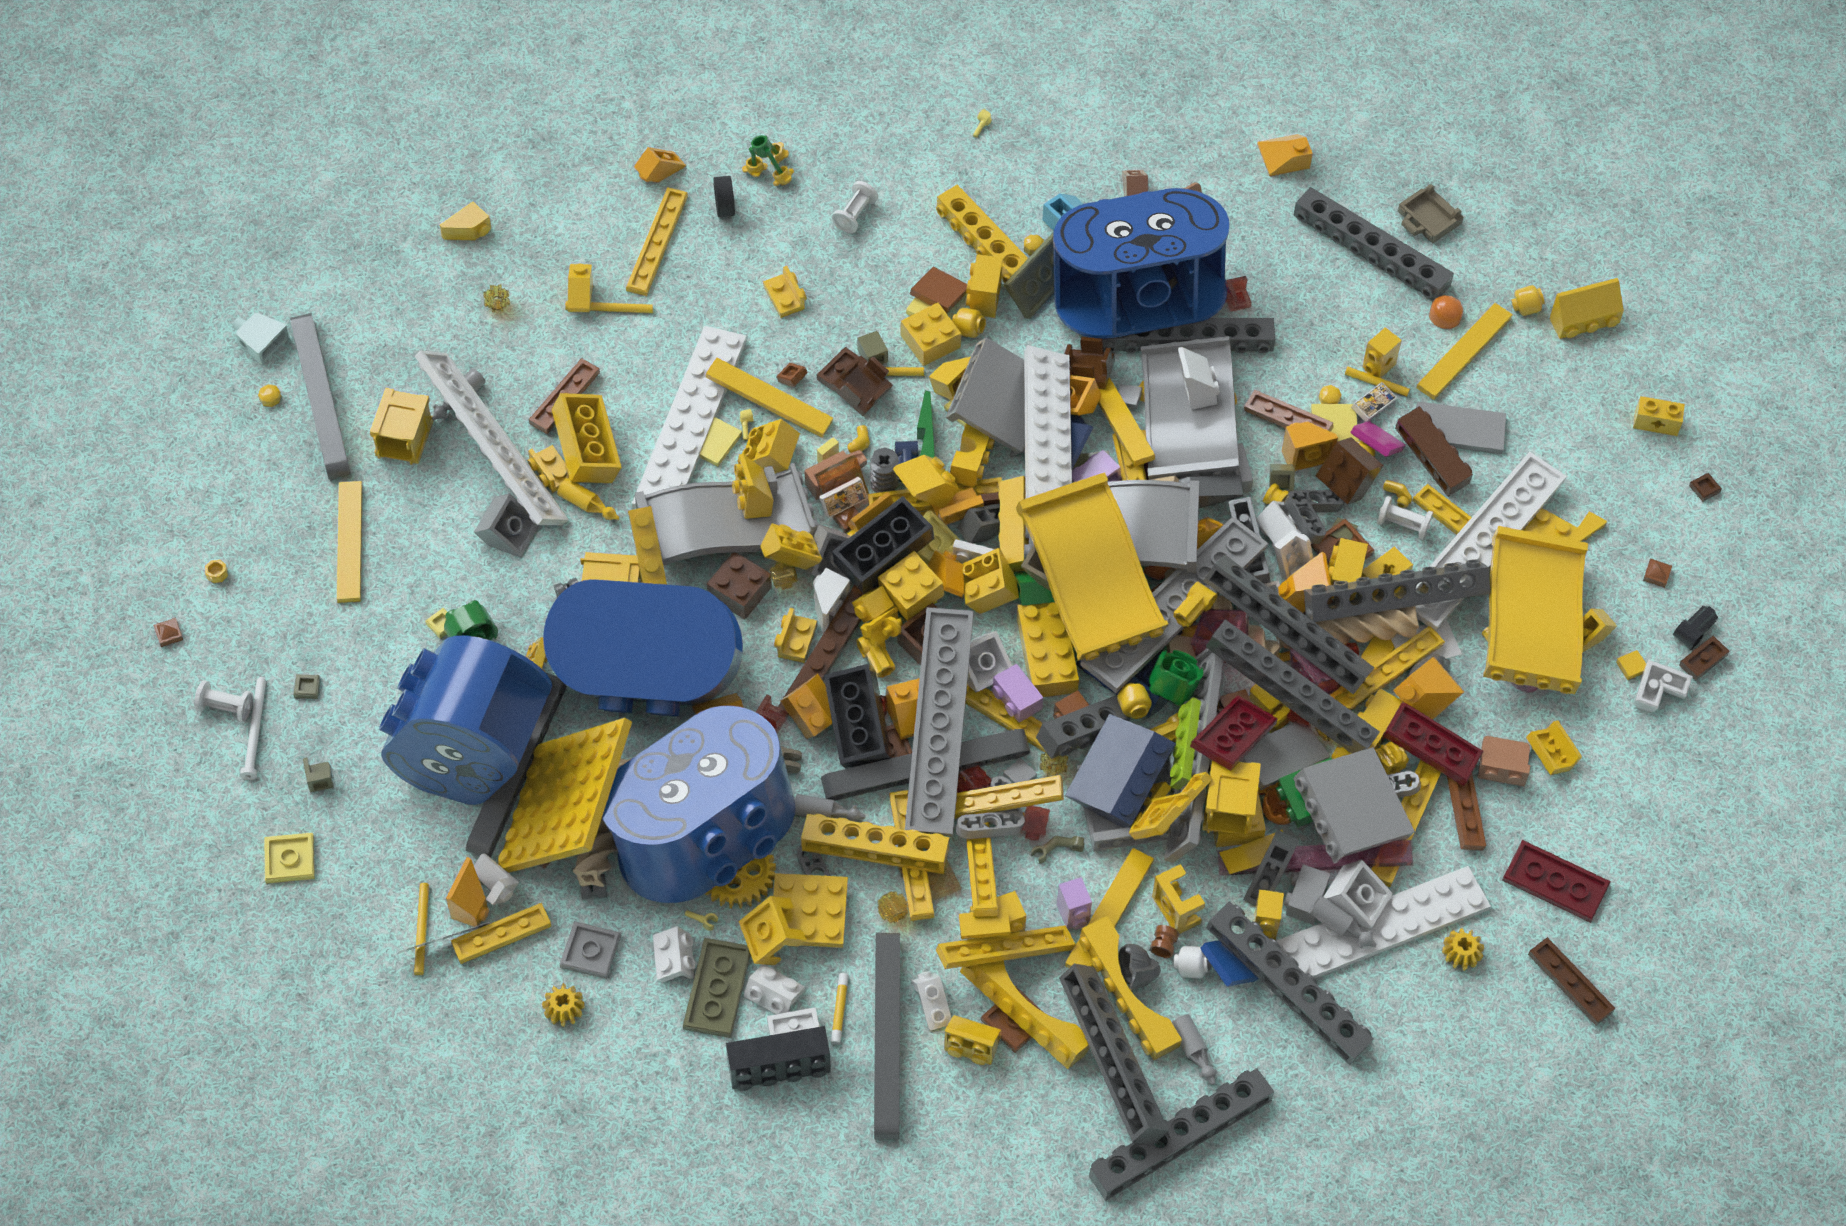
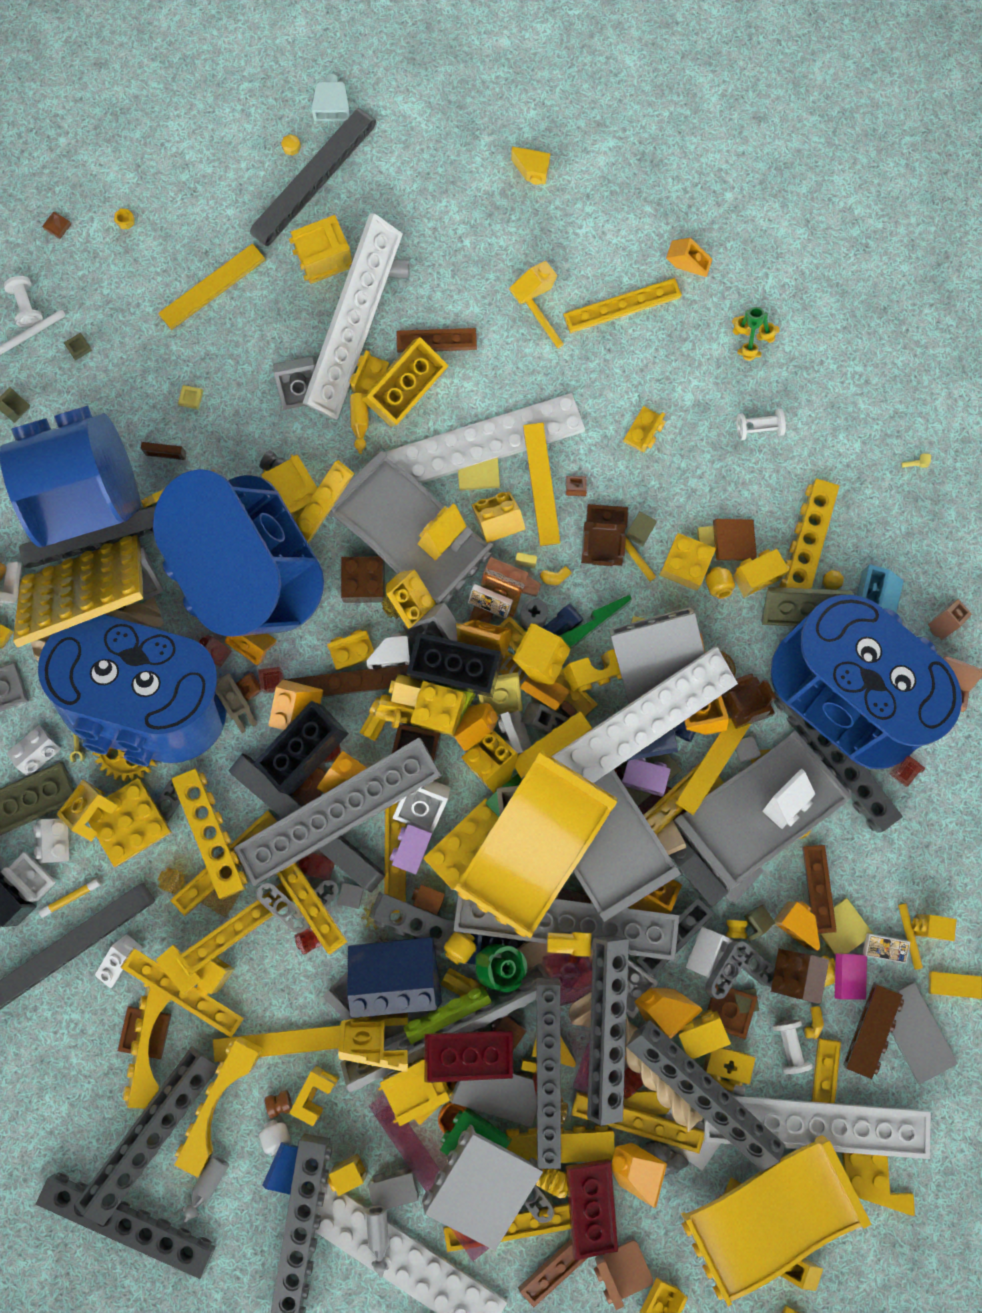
camera: 55 degrees right, 20 degrees up
(470, 621) = (190, 420): green brick -> none
(496, 292) = (482, 232): clear yellow gear -> none
(724, 196) = (694, 323): black tyre -> none
(745, 417) = (513, 479): light yellow hand -> none
(829, 808) = (220, 773): light grey wheel -> none
(948, 377) = (658, 602): yellow slope -> none
(971, 1040) = (97, 1016): yellow slope -> none
(1074, 903) = (257, 1017): lavender brick -> none
(1075, 843) = (313, 963): olive arm -> none
(1137, 966) = (239, 1101): dark grey hair -> none
(1246, 855) = (411, 1133): yellow sticker -> none
(1272, 865) = (392, 1151): dark grey slope -> none
(1292, 553) = (688, 980): white bracket -> none
(1329, 395) = (866, 907): yellow tile -> none
(1359, 893) = (412, 1236): white slope -> none
(1657, 573) = (896, 1289): dark orange tile -> none

